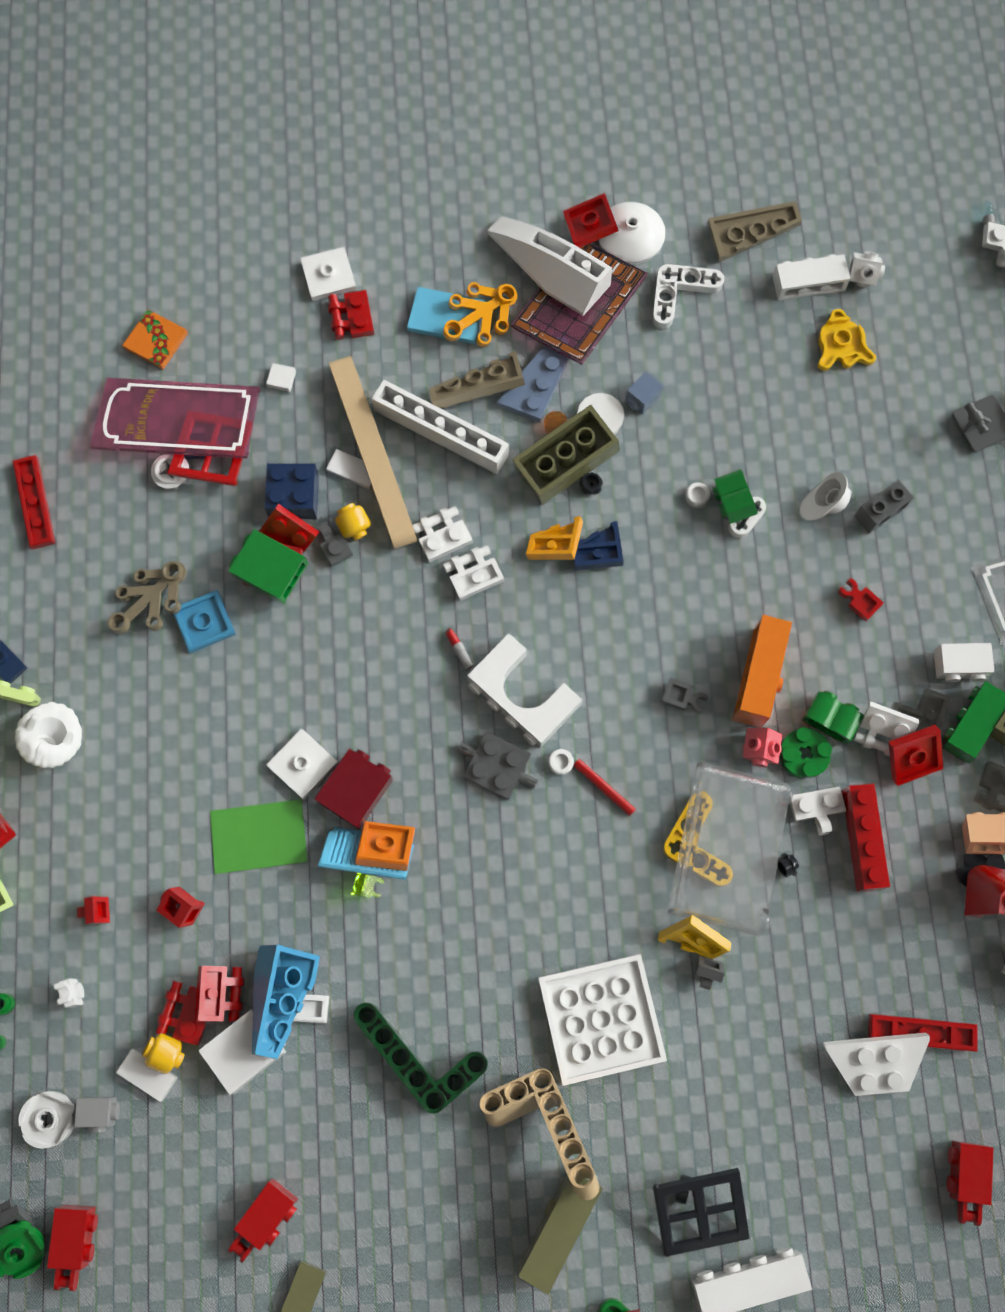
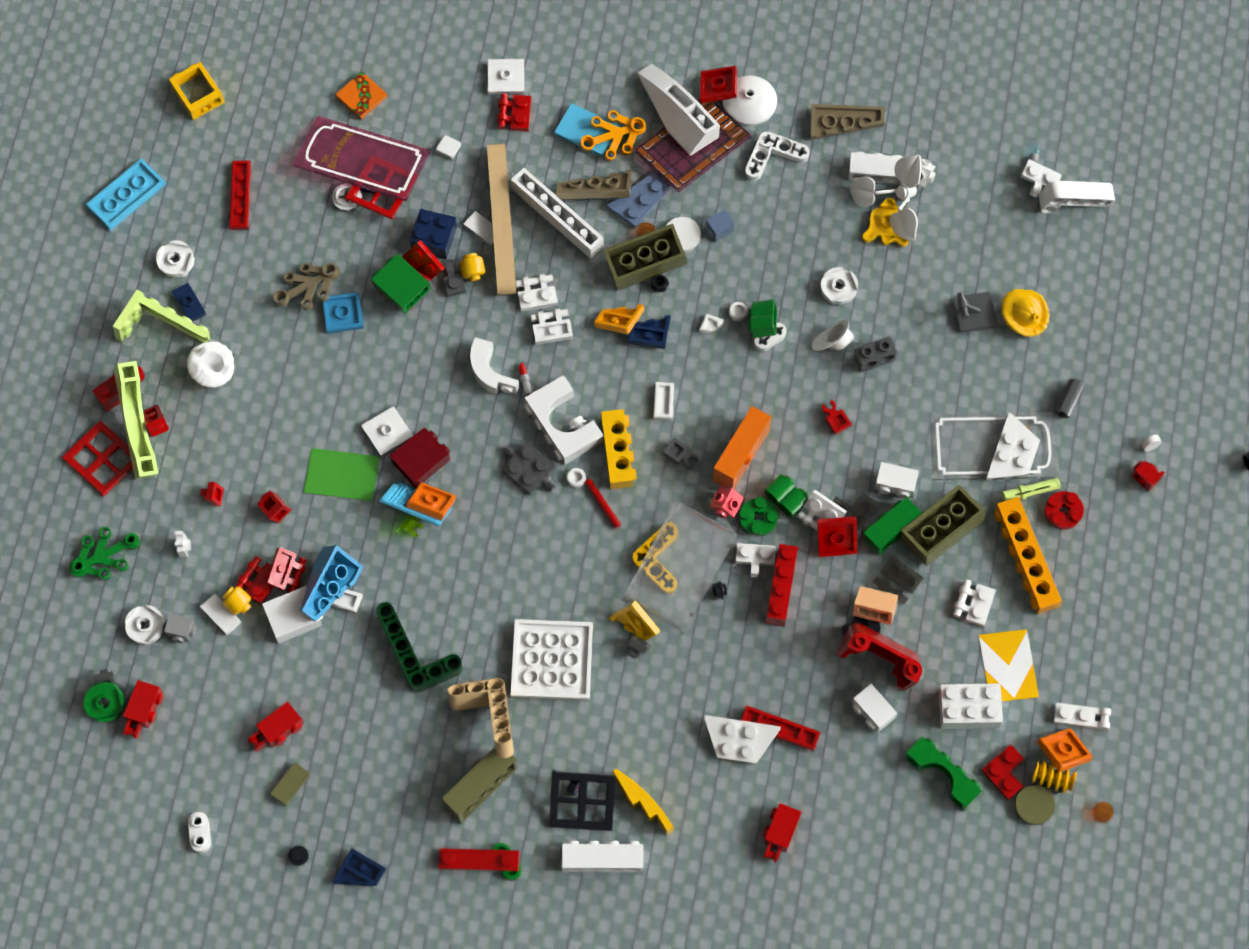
camera: 15 degrees right, 5 degrees down
(394, 634) = (491, 381): none -> white arch
(543, 691) = (577, 423): none -> white plate
(611, 748) = (618, 420): none -> yellow brick
(640, 632) = (663, 401): none -> white tile
(668, 519) = (710, 324): none -> white tile
(771, 1184) = (638, 796): none -> yellow slope
(806, 444) = (835, 295): none -> white plate
(864, 269) = (907, 170): none -> white plant

